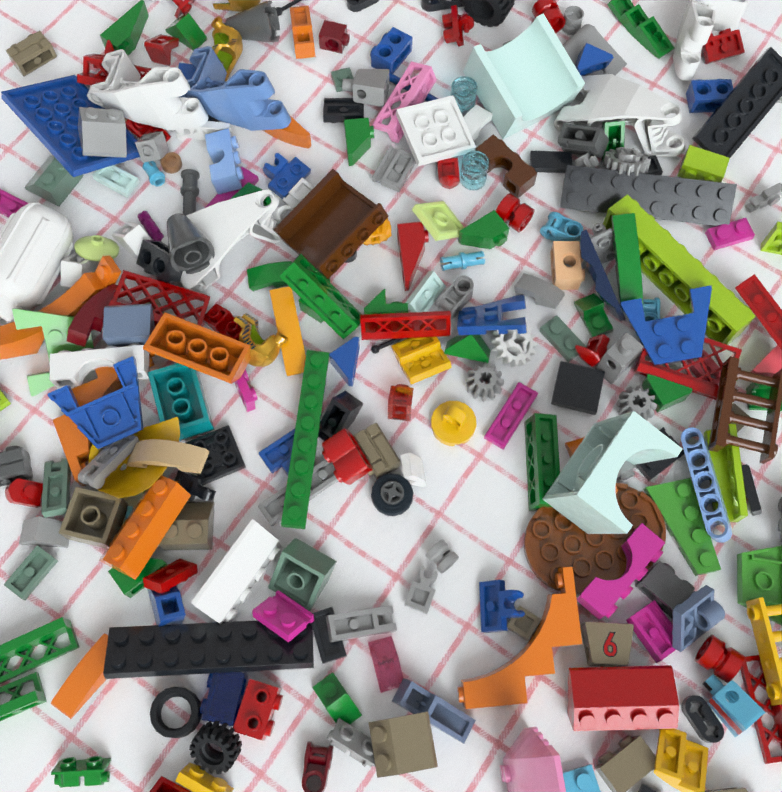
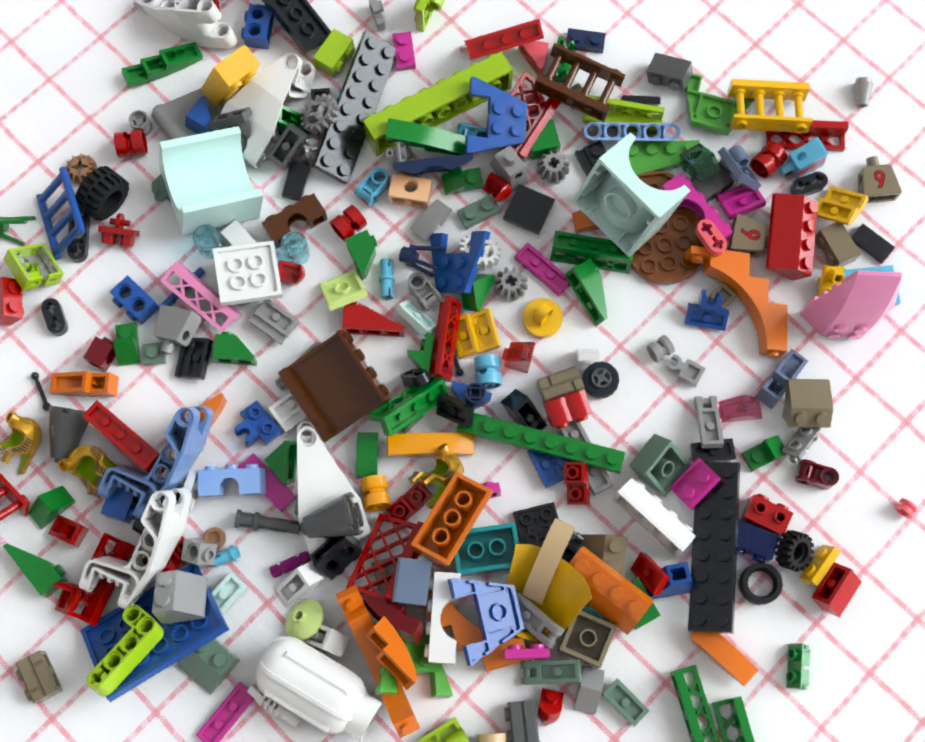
camera: 80 degrees left, 5 degrees up
(44, 99) = (127, 653): none -> lime beam
(53, 316) = (393, 652): none -> orange slope
(67, 449) = (536, 652): none -> dark pink plate
(231, 286) = (375, 493): none -> light orange wheel
(247, 49) = (122, 436): none -> red fence
(271, 481) = (577, 483): none -> red slope
(323, 342) = (455, 410): none -> black plate
(344, 56) = (127, 344): none -> green slope
(346, 362) = (475, 398): none -> dark blue wheel
(356, 301) = (415, 377): none -> black beam
(378, 373) = (487, 368): none -> medium azure wheel
(491, 277) = (411, 257): none -> dark blue plant
(502, 461) = (588, 287): none -> green slope
(576, 758) = (829, 277): none -> yellow hips
(592, 592) = (711, 237): none -> coral beam
(593, 83) = (237, 118): none -> dark grey tile
(639, 61) = (230, 76): none -> yellow brick
(686, 566) = (699, 162): none -> clear green brick

